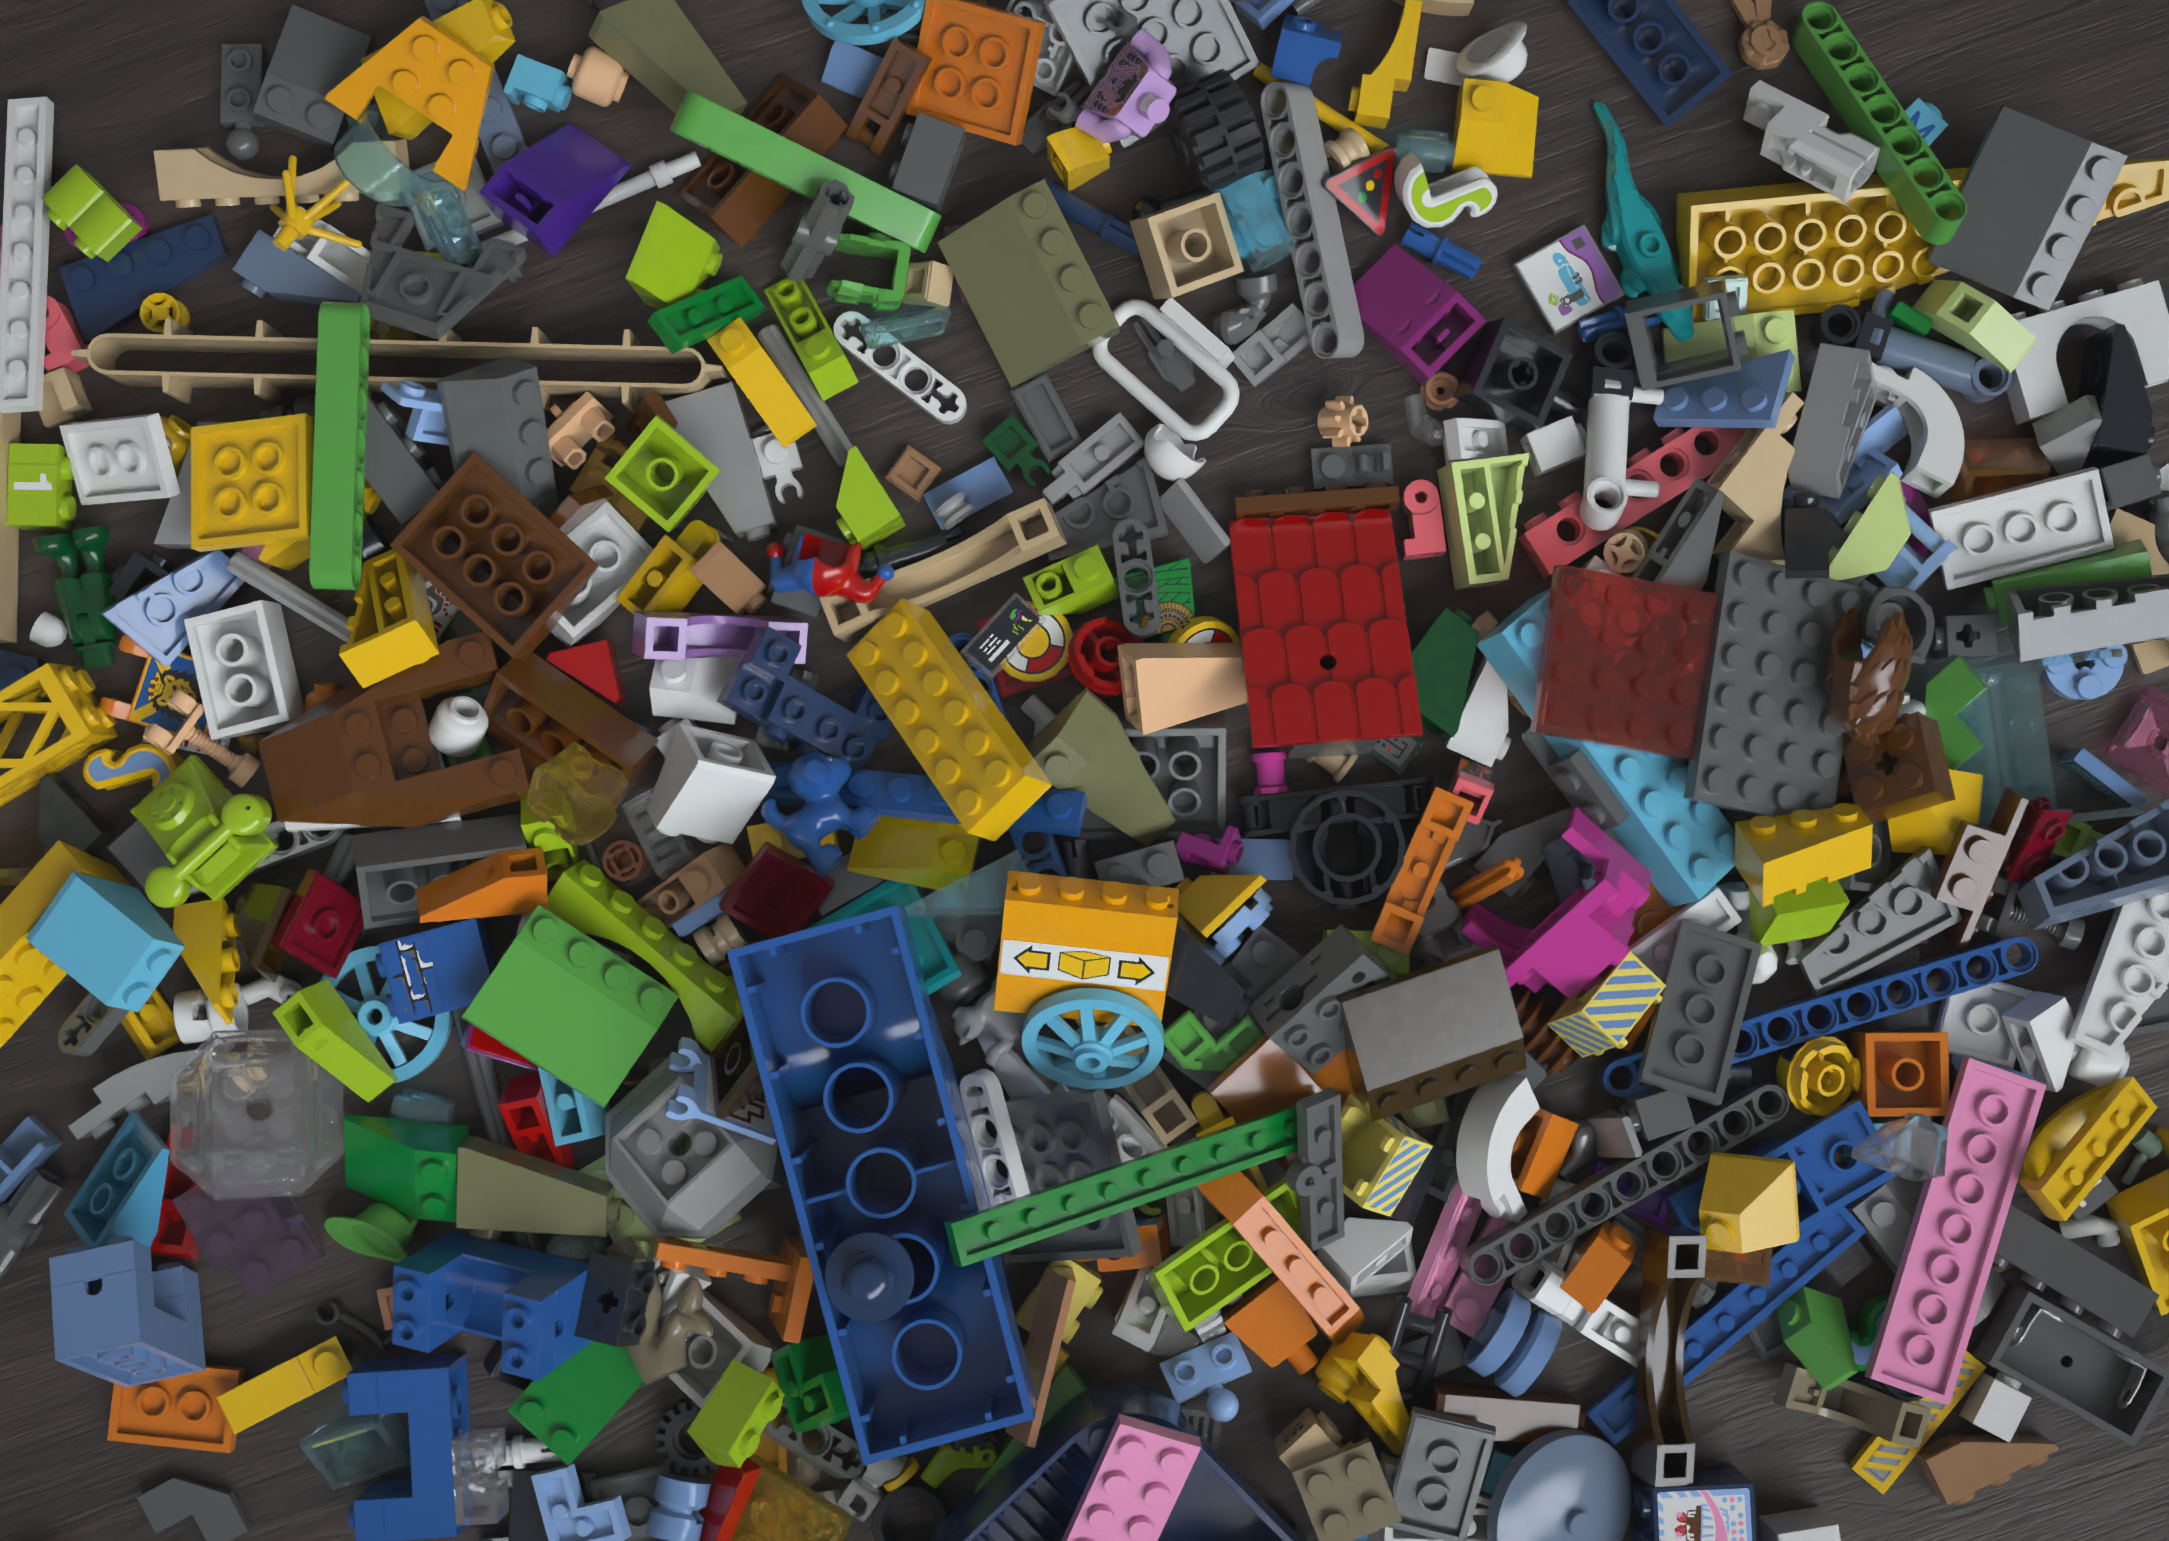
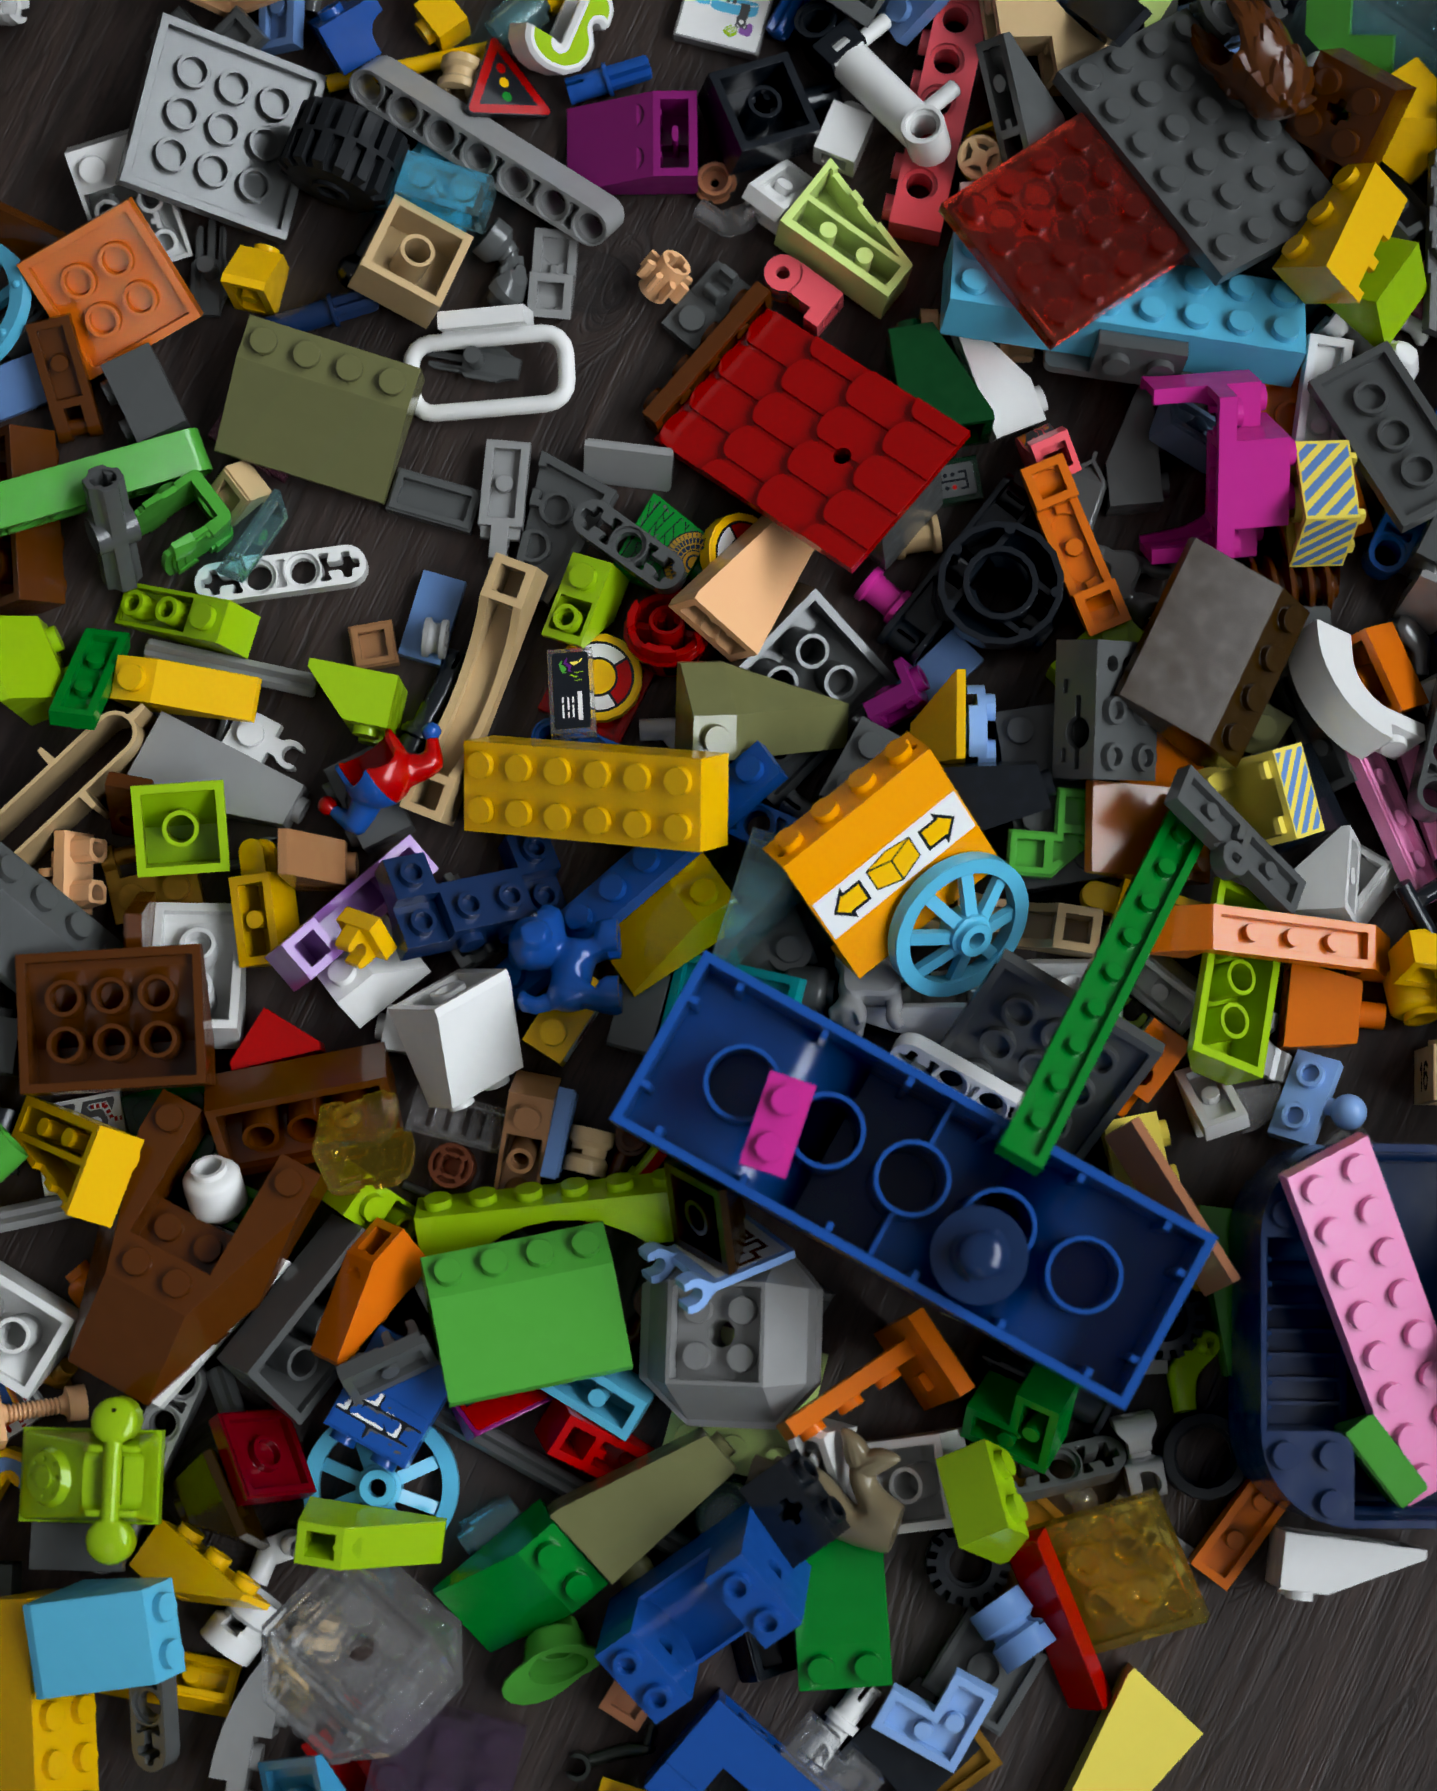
camera: 40 degrees left, 5 degrees down
(443, 948) = (387, 1366): none -> dark grey plate
(705, 663) = (363, 937): none -> yellow tile
(776, 892) = (594, 1065): dark red tile -> none
(828, 1064) = (777, 1124): none -> dark pink plate
(906, 1473) = (1161, 1414): yellow piece -> none
(1013, 447) = (431, 547): dark green plate -> none
(1130, 93) = (250, 187): lavender torso -> none
(1169, 454) = (558, 434): white hair -> none
(1487, 882) = (1134, 504): orange axle -> none

